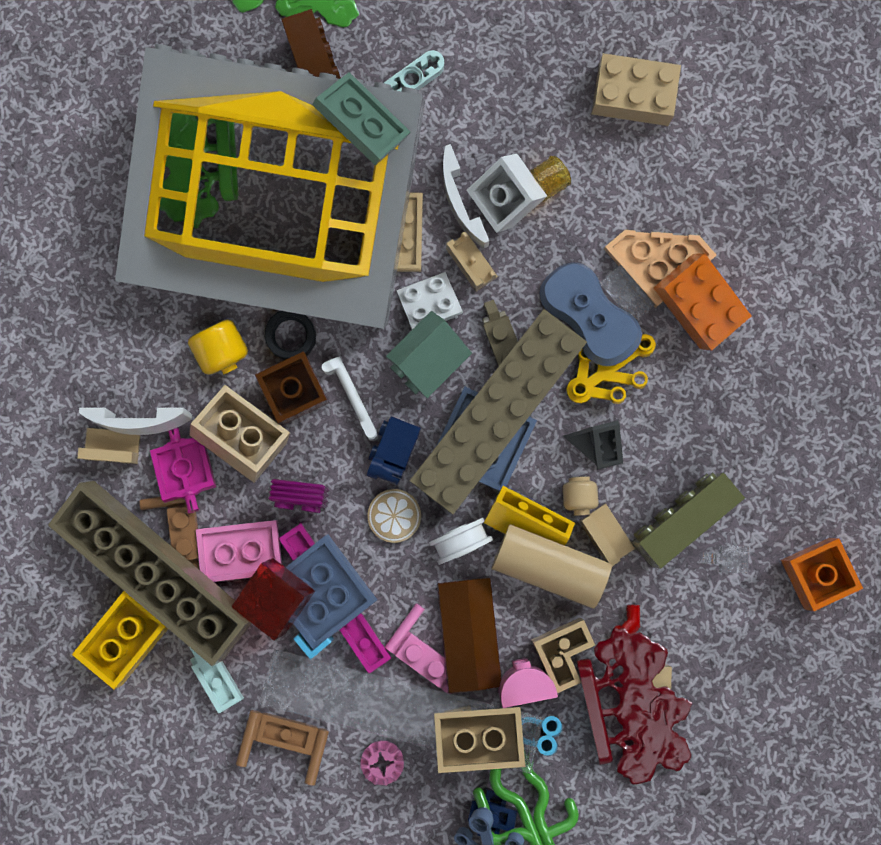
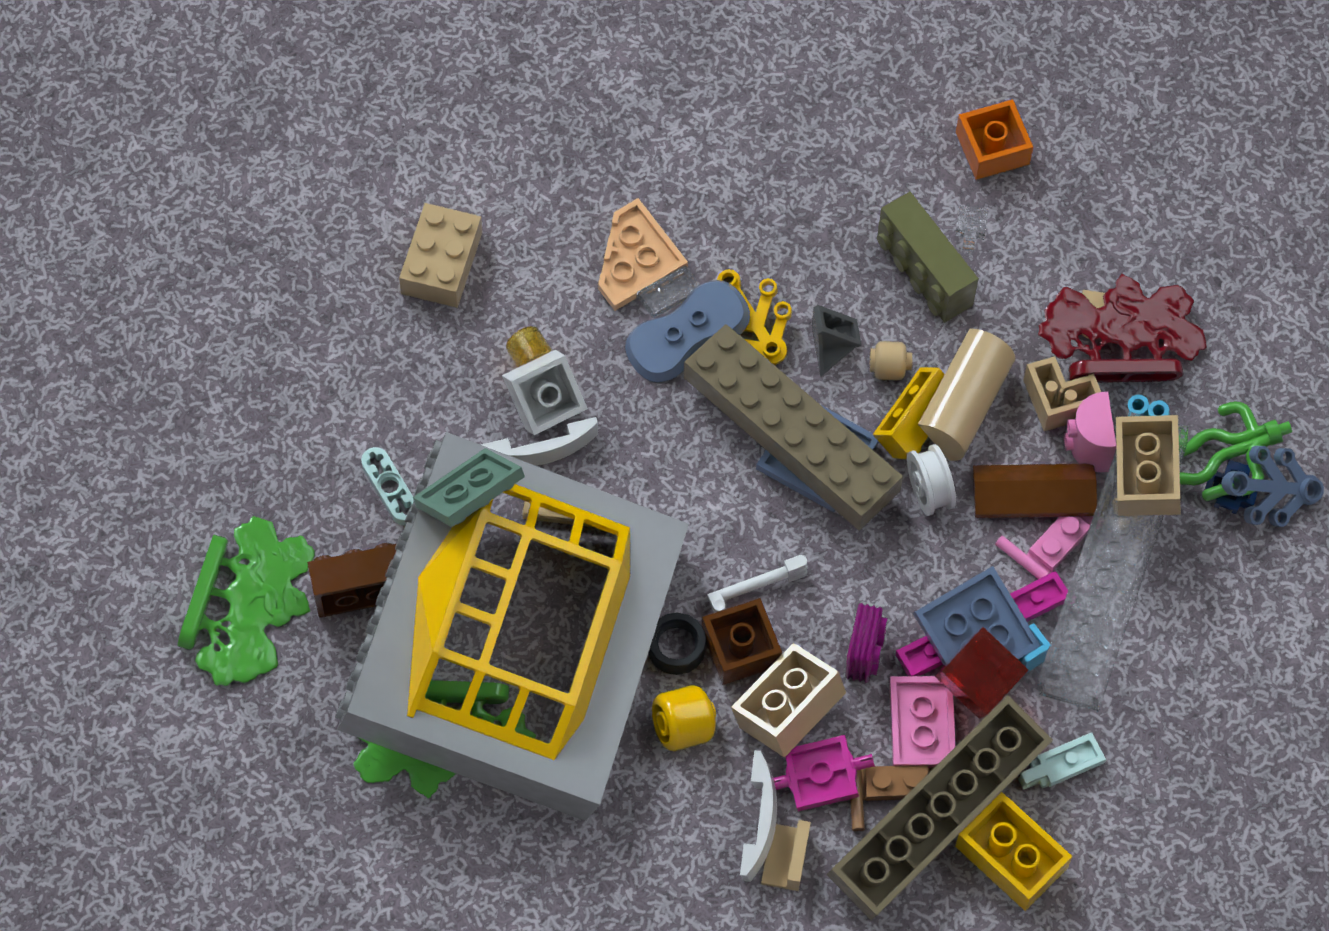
camera: 85 degrees left, 20 degrees down
(287, 735) = (1134, 691): medium nougat plate -> none
(389, 752) = (1162, 605): bright pink gear -> none
(393, 451) = (821, 544): dark blue hinge -> none
(394, 515) = (895, 556): dish -> none
(428, 355) = (719, 491): sand green brick -> none
(429, 295) = (657, 487): white hinge -> none
(471, 261) = (614, 446): tan hinge -> none
(498, 331) = (699, 426): dark tan hinge -> none
(607, 535) = (935, 343): tan panel -> none
(632, 623) = (1031, 328): red arm -> none
(702, 301) = (690, 215): orange brick -> none

